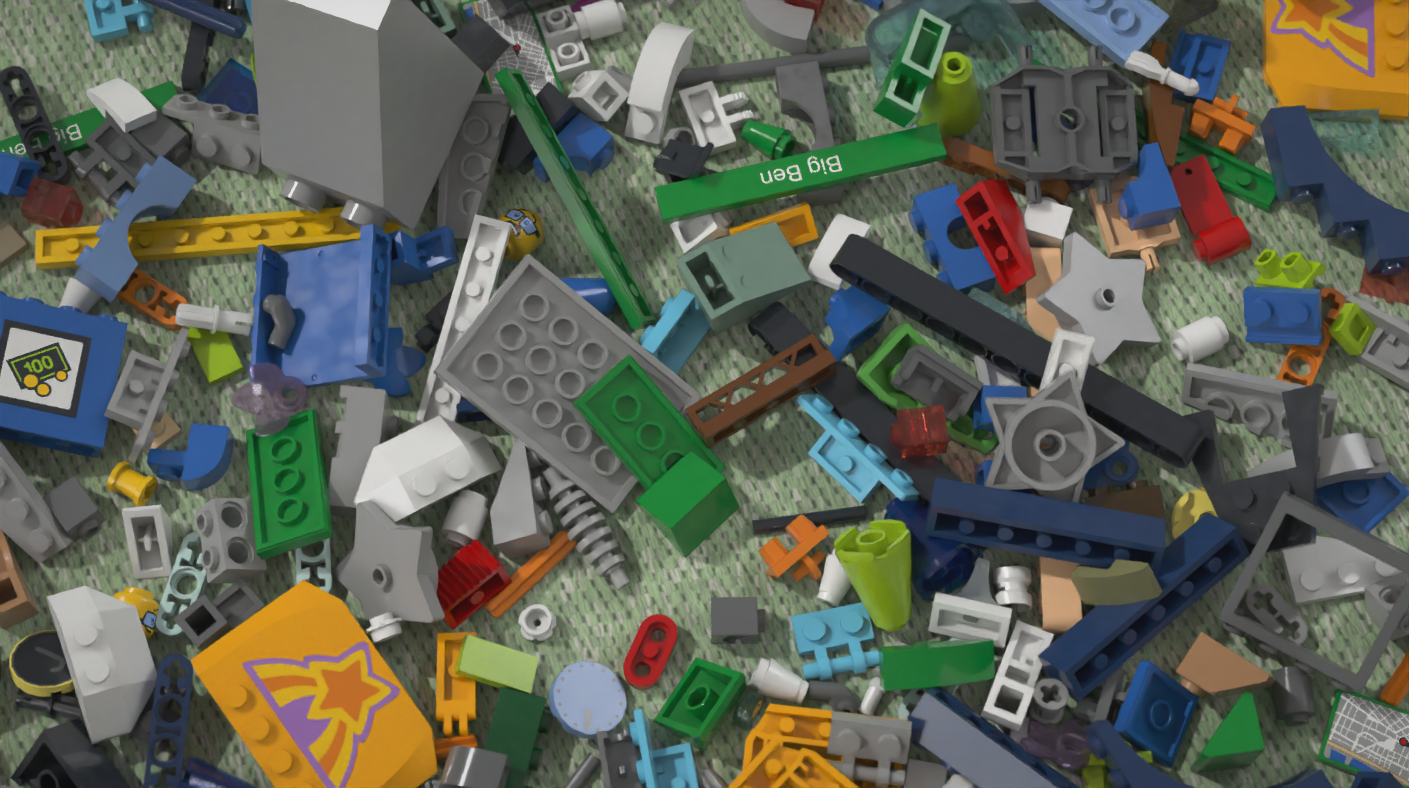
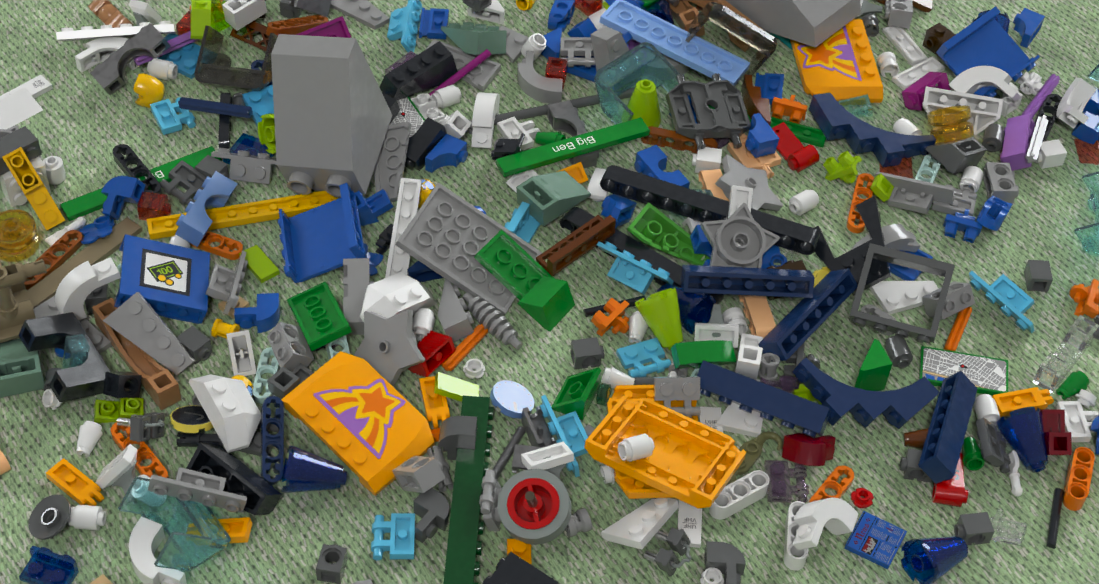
camera: 15 degrees left, 20 degrees down
(123, 103) = (188, 152): white slope -> none
(213, 319) = (259, 246): white axle -> none
(265, 398) = (299, 277): clear purple plate -> none
(283, 318) = (299, 241): dark grey arm -> none
(384, 627) = (390, 372): white plate -> none
(576, 198) = (454, 168): green tile -> none
(650, 653) = (541, 376): red plate -> none
(912, 68) = (623, 90): green slope -> none
(920, 431) = (668, 250): clear red brick -> none
(936, 382) = (671, 227): dark grey hinge -> none
(999, 232) = (686, 161): red slope -> none
(1121, 584) = (792, 302): olive slope -> none
(1150, 67) = (739, 80): white piece -> none
(1156, 713) = (829, 360): blue tile -> none
(1219, 671) = (856, 337): medium nougat slope -> none
(1249, 400) = (839, 223): light grey wing -> none
(1283, 315) = (844, 183): blue plate -> none

